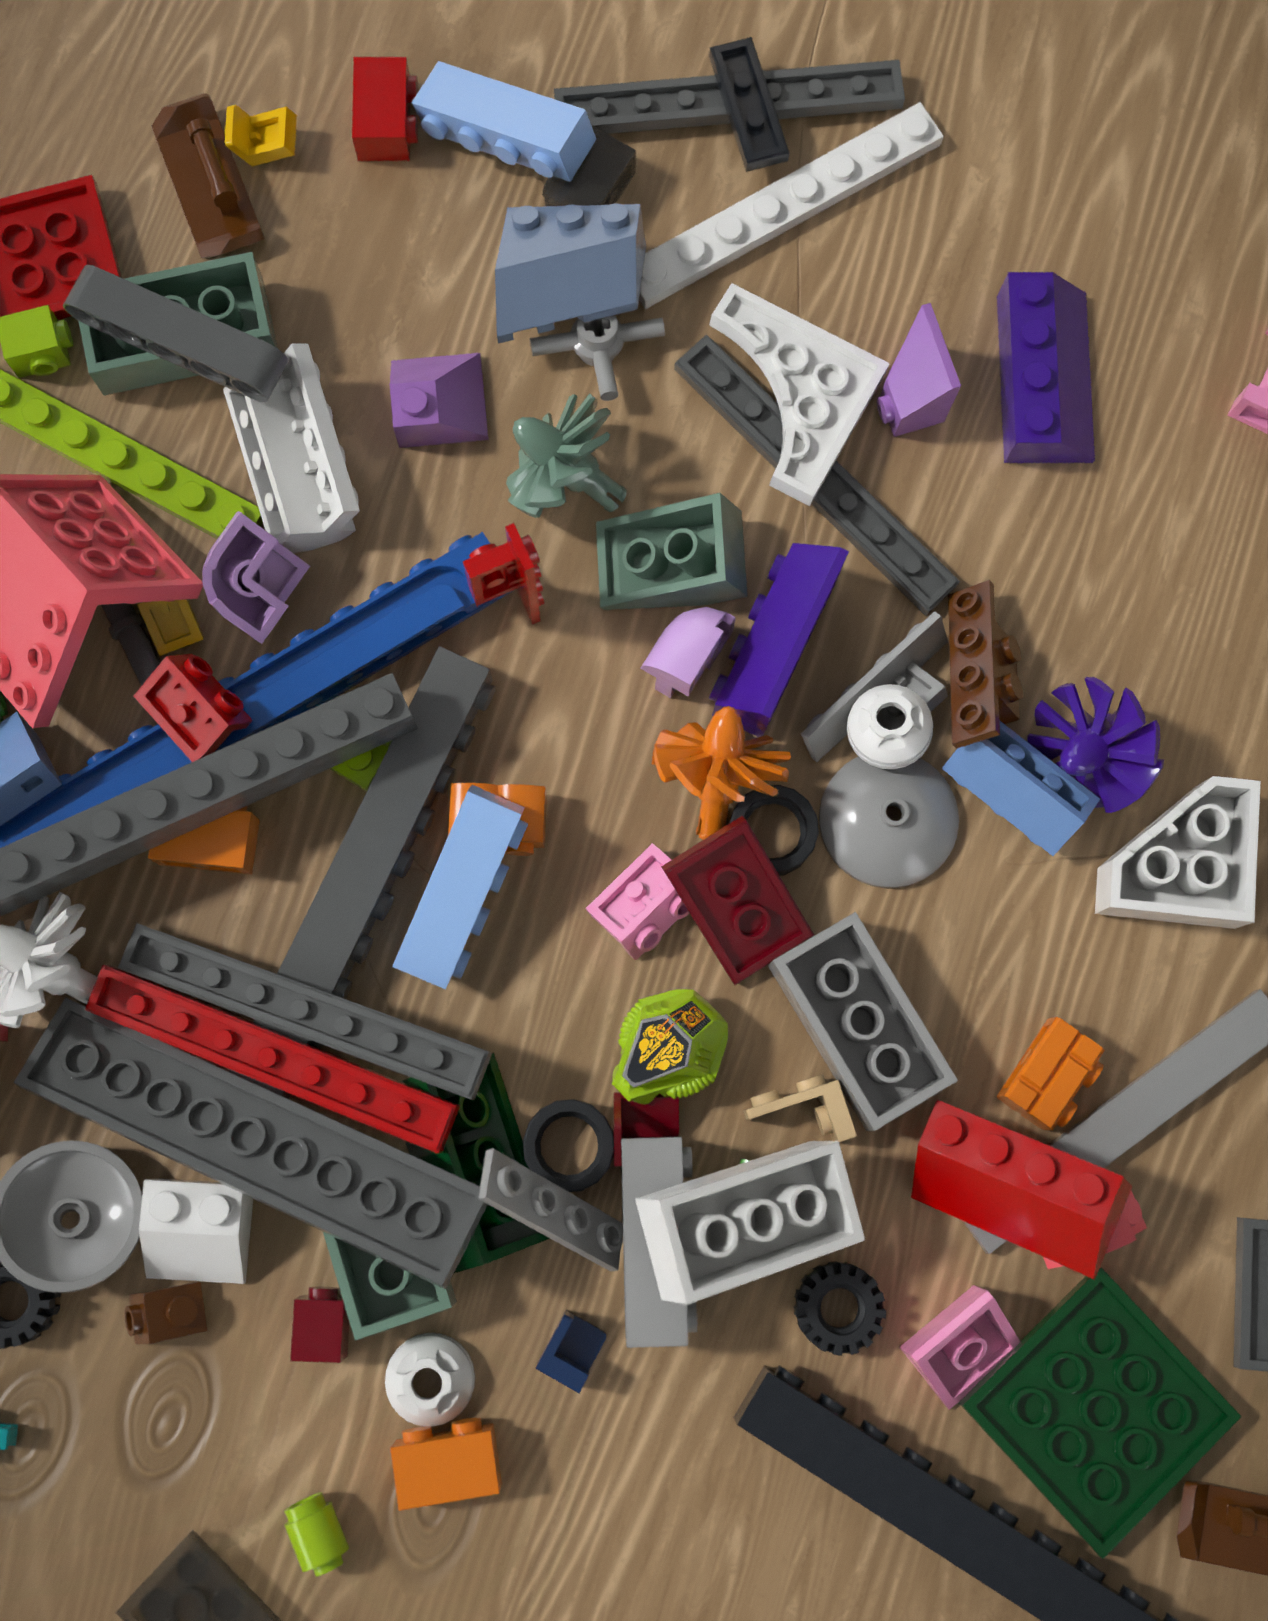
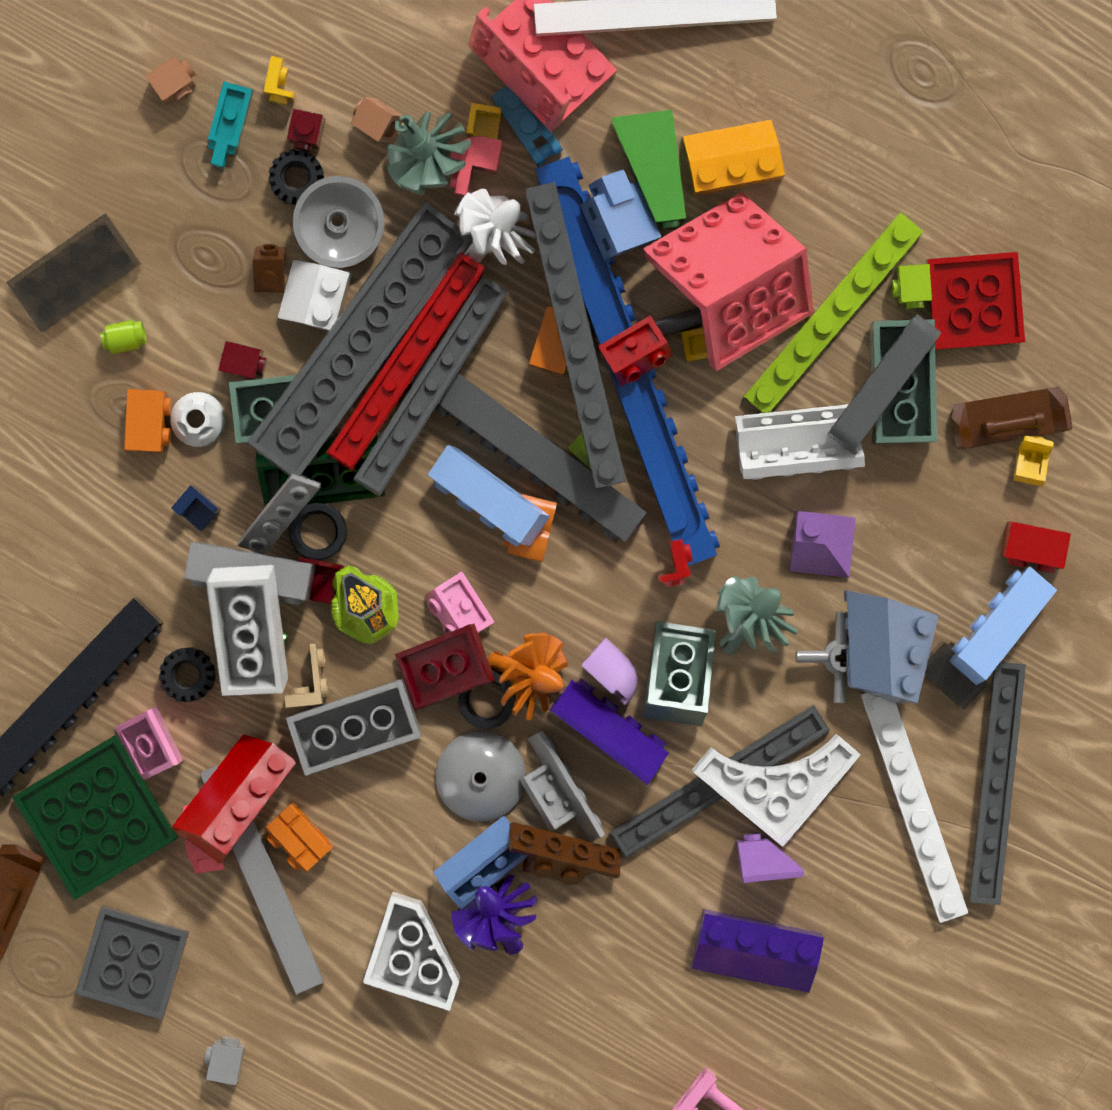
camera: 110 degrees right, 10 degrees up
(250, 577) = (715, 400): lavender brick -> none
(749, 104) = (985, 794): black tile -> none
(890, 747) = (519, 787): white piece -> none

